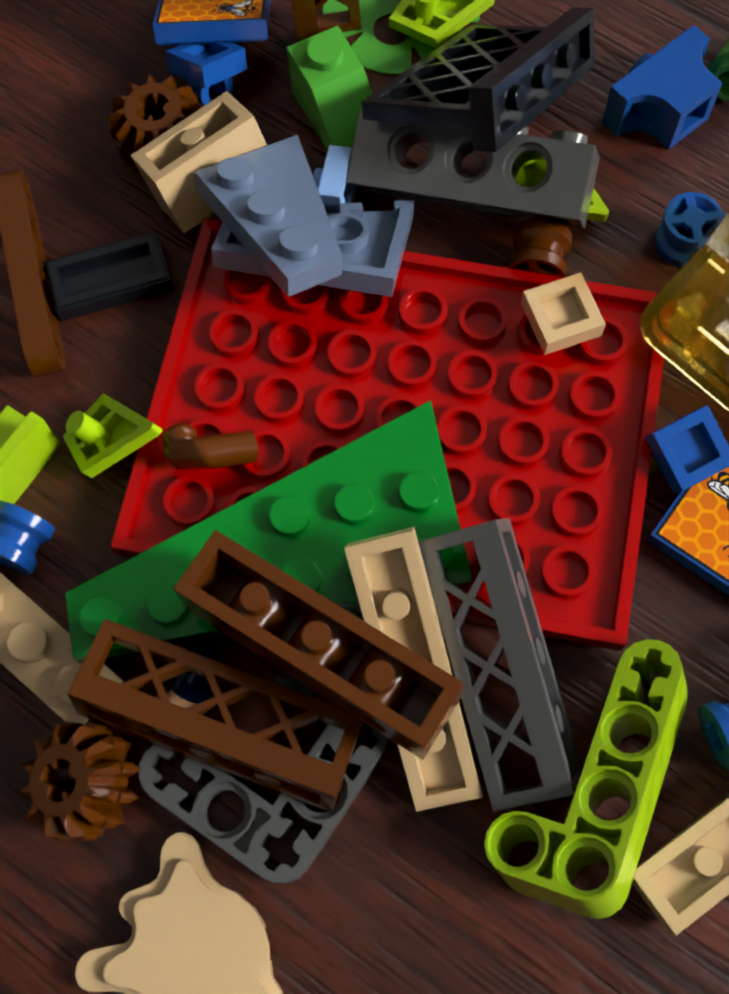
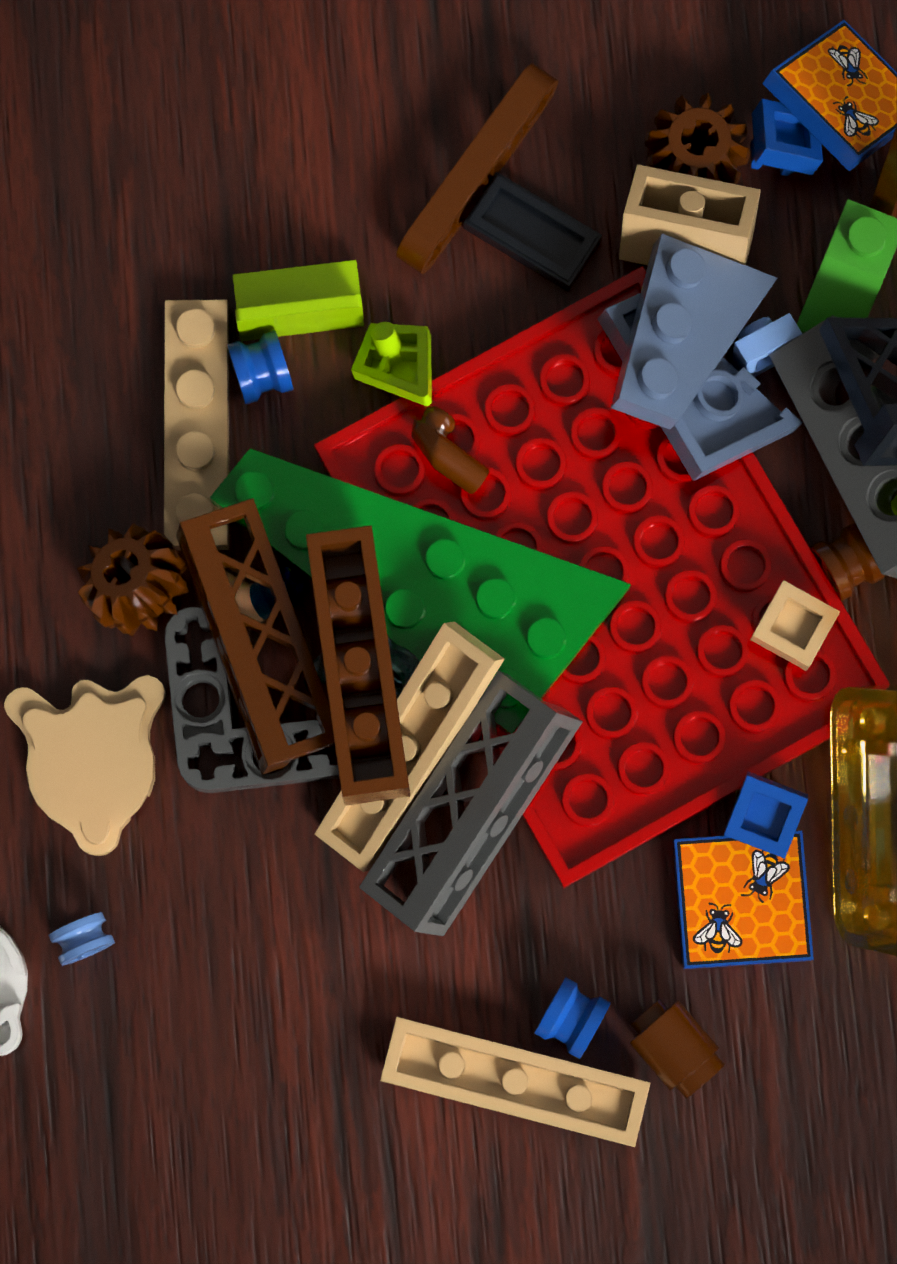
camera: 45 degrees right, 10 degrees up
(605, 775) = (449, 942): lime beam -> none

